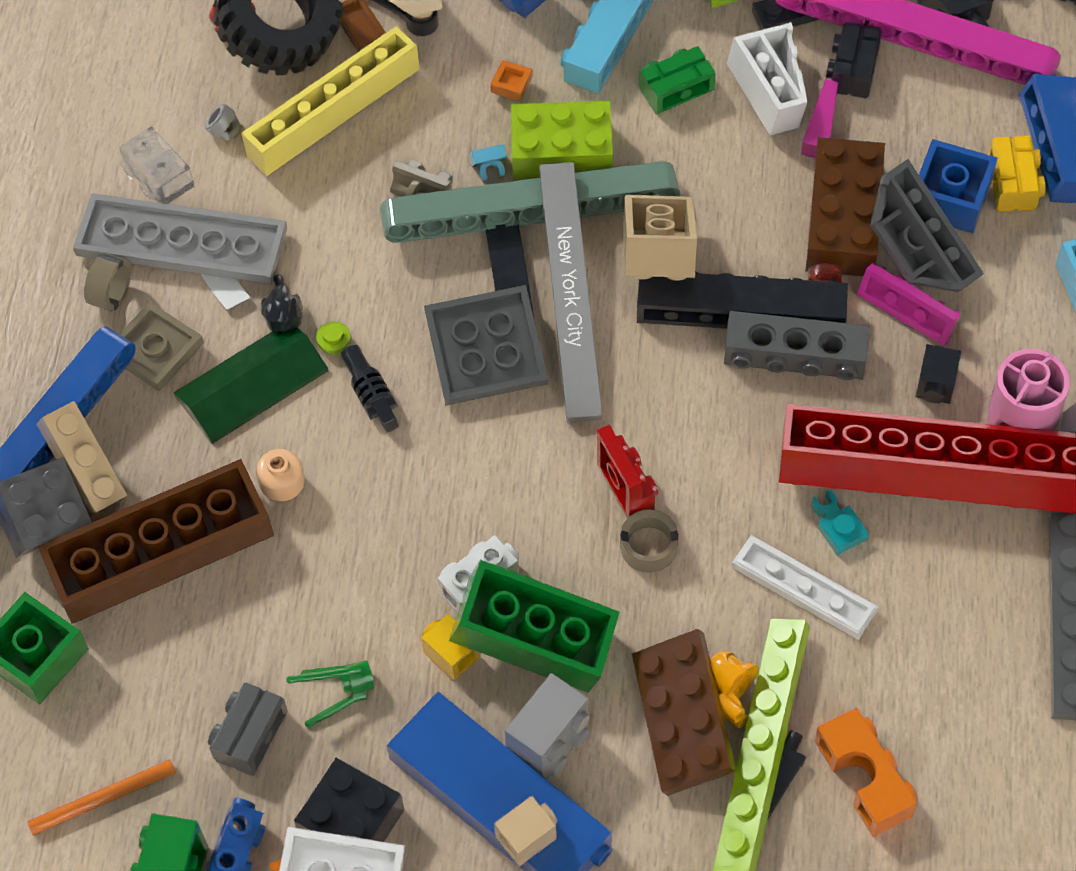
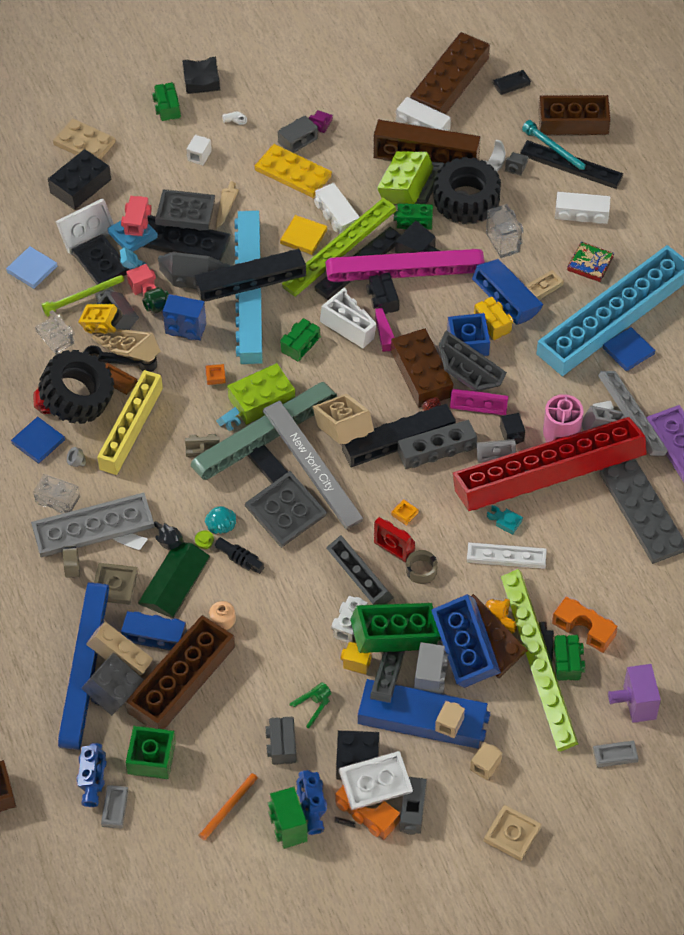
camera: 30 degrees left, 5 degrees down
(160, 447) = (153, 630): none -> blue brick
(186, 71) = (38, 440): none -> blue tile
(377, 317) = (220, 520): none -> teal hair
(473, 703) = (387, 676): none -> dark grey tile
(537, 505) = (359, 572): none -> dark grey brick
(635, 705) = (465, 641): none -> blue brick
(678, 436) = (404, 512): none -> light orange tile
(801, 817) = (568, 657): none -> green brick
(887, 396) = (494, 449): none -> light grey plate

